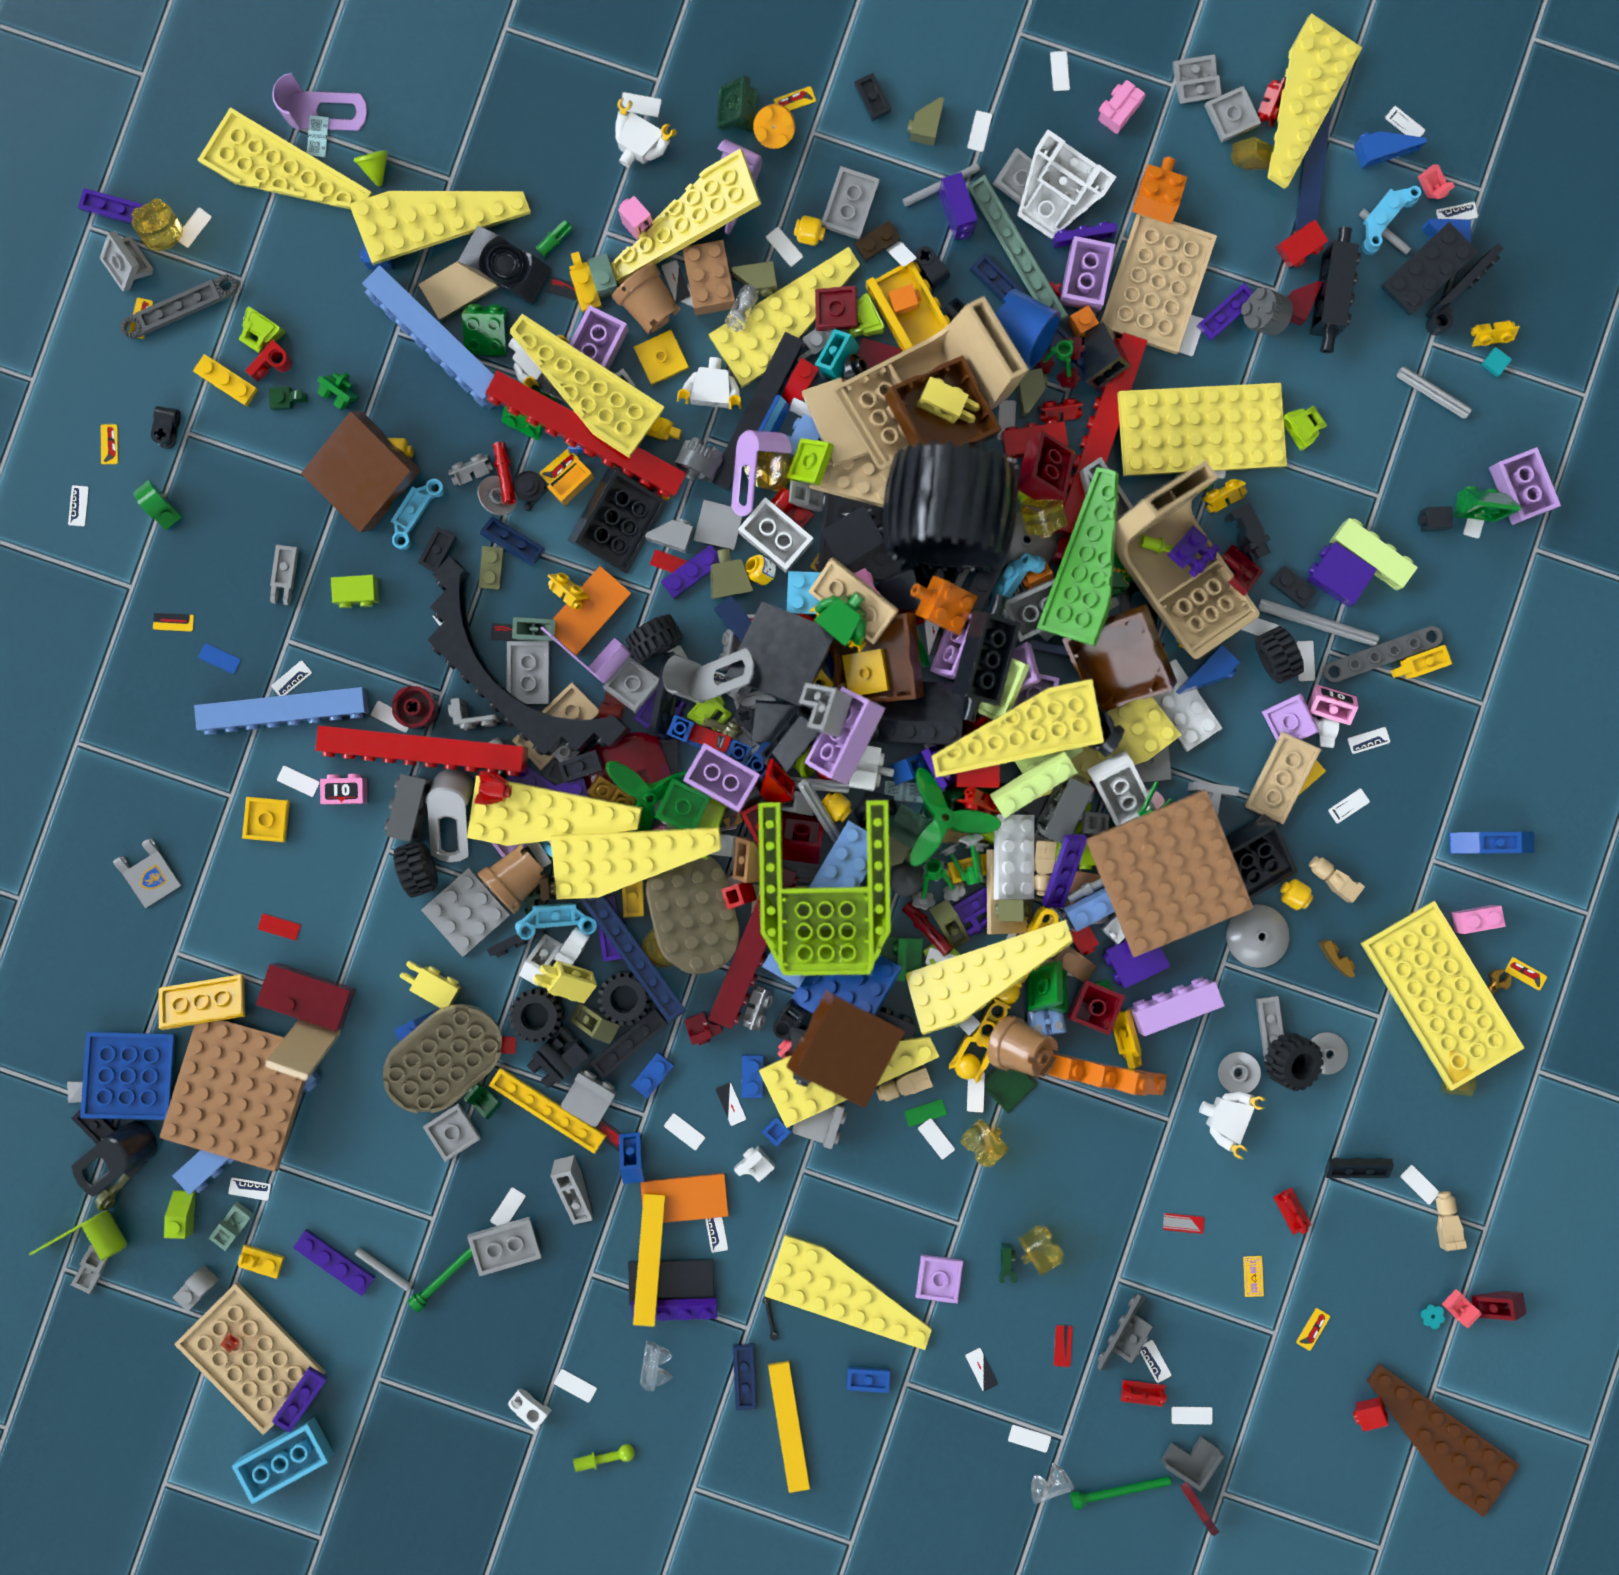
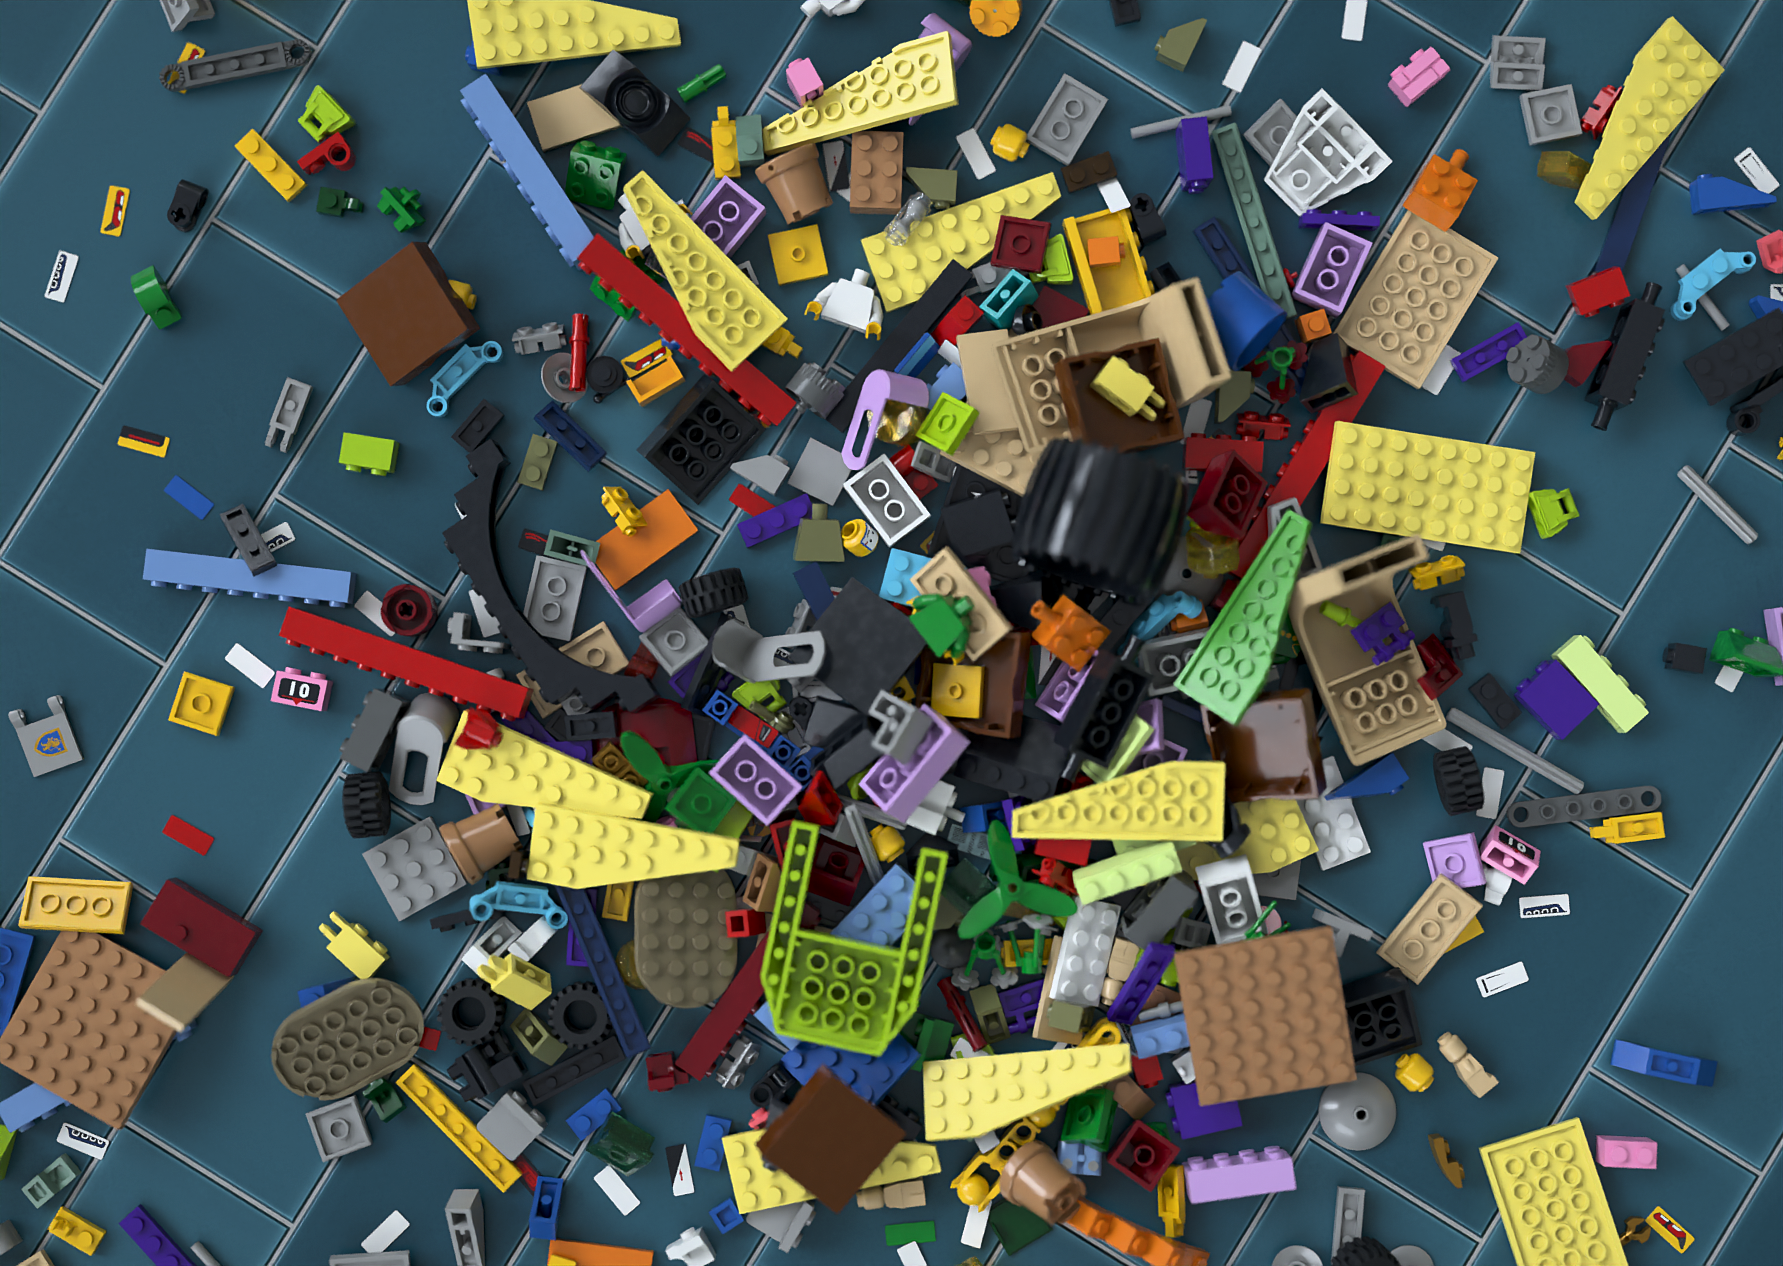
camera: 15 degrees right, 0 degrees up
(274, 680) = (248, 540): none -> black tile
(480, 704) = (488, 624): none -> white sticker
(680, 1094) = (622, 1145): none -> clear green bracket

